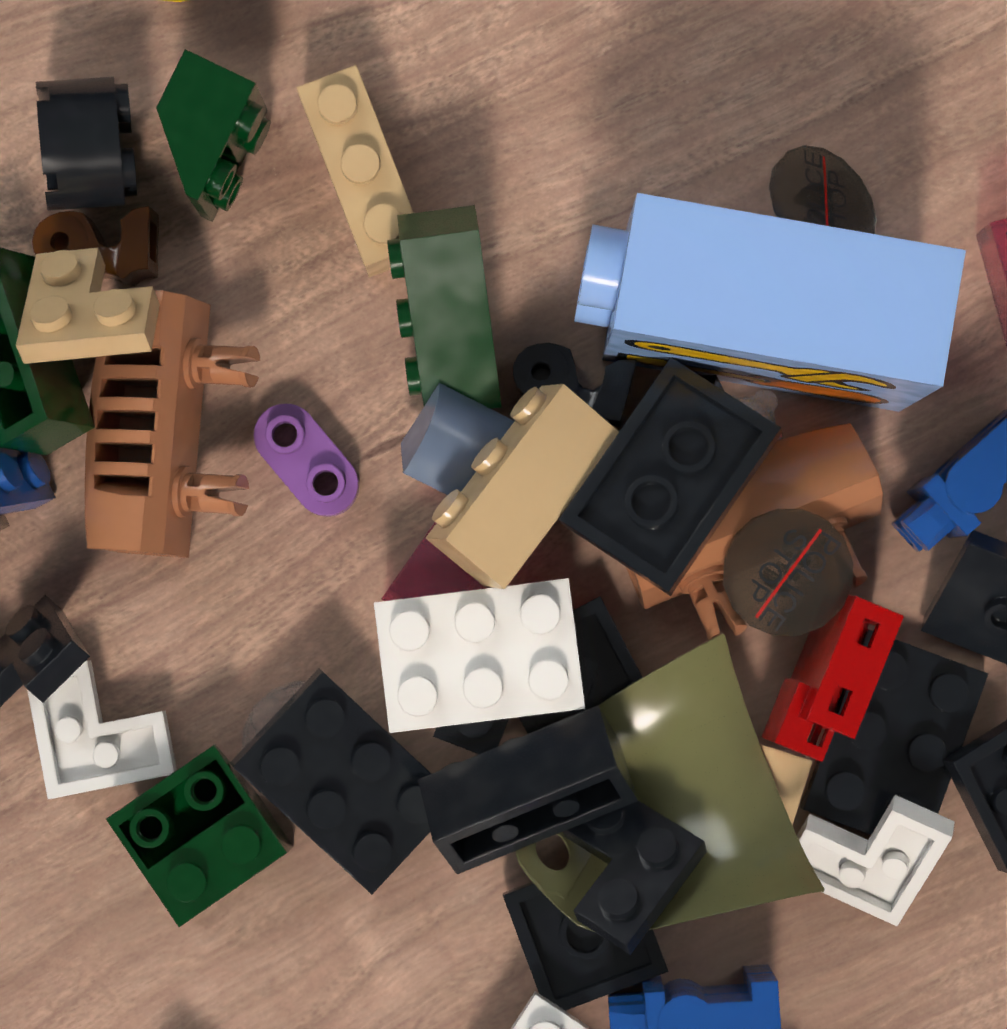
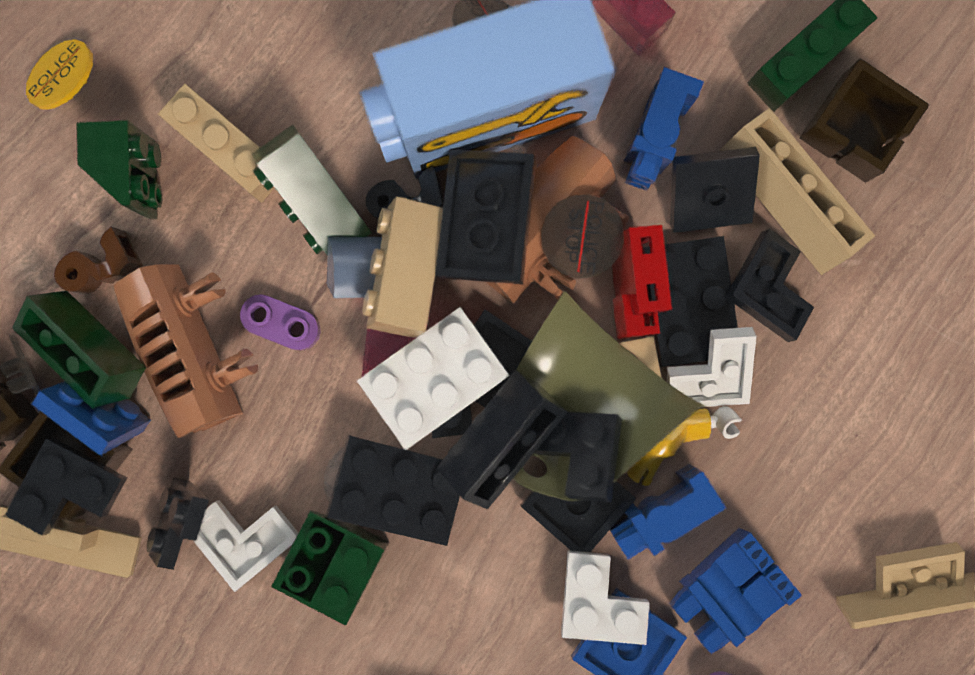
camera: 25 degrees left, 0 degrees up
(74, 319) = (97, 306): tan plate -> none
(82, 142) = (52, 210): black brick -> none
(799, 916) = (695, 427): none -> yellow arm

